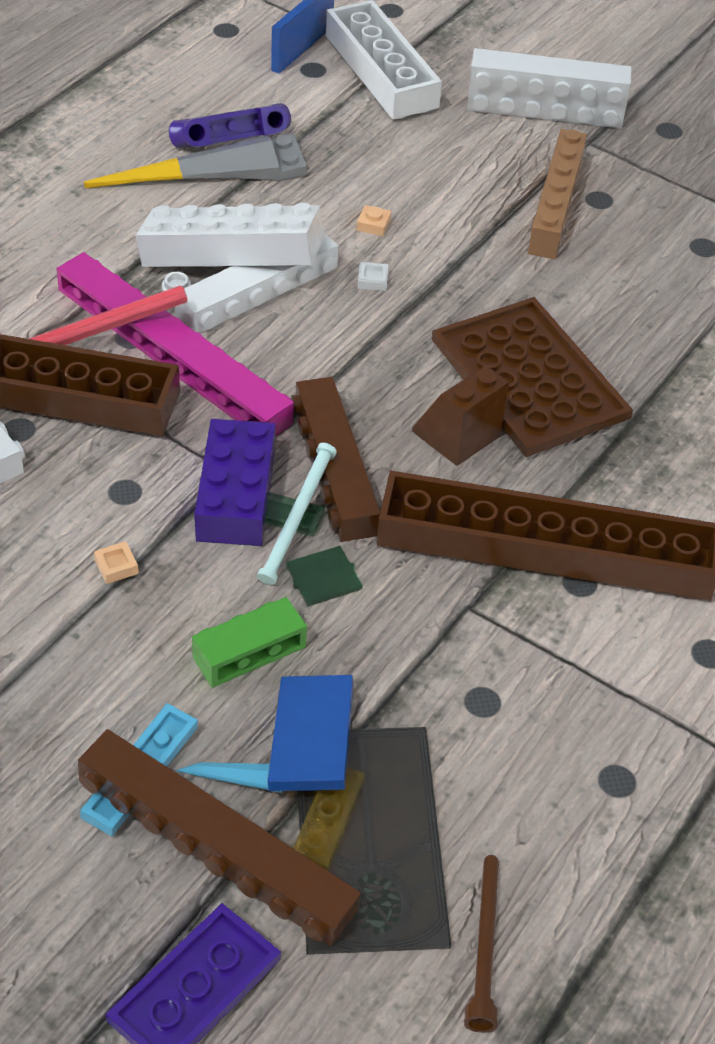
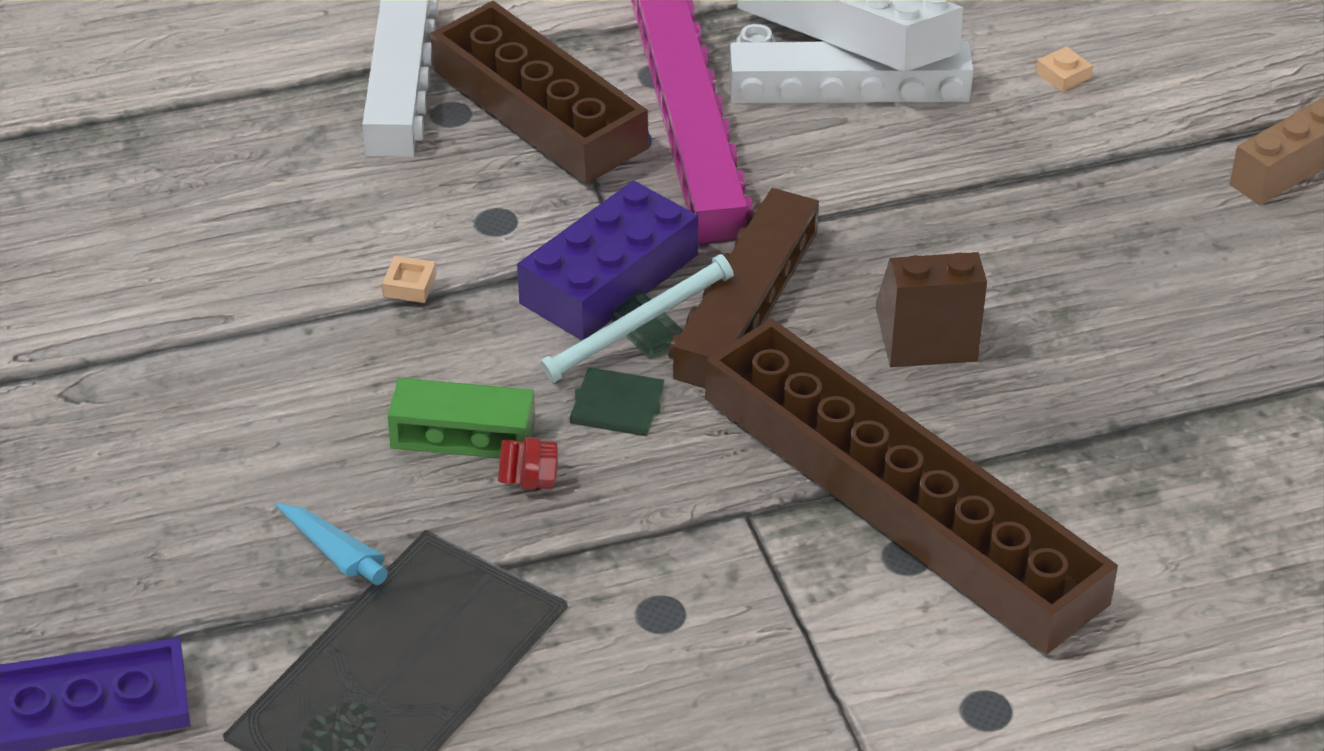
camera: 40 degrees right, 5 degrees down
(115, 317) = (636, 38): coral axle -> none
(162, 742) = (234, 478): medium azure plate -> none
(219, 837) = (232, 578): reddish brown brick -> none
(311, 733) = (429, 534): blue tile -> none
(322, 648) = (528, 463): none -> red piece
(328, 819) = (369, 624): clear yellow tile -> none
(373, 276) = (999, 127): white tile -> none
(552, 384) = (1078, 313): reddish brown plate -> none

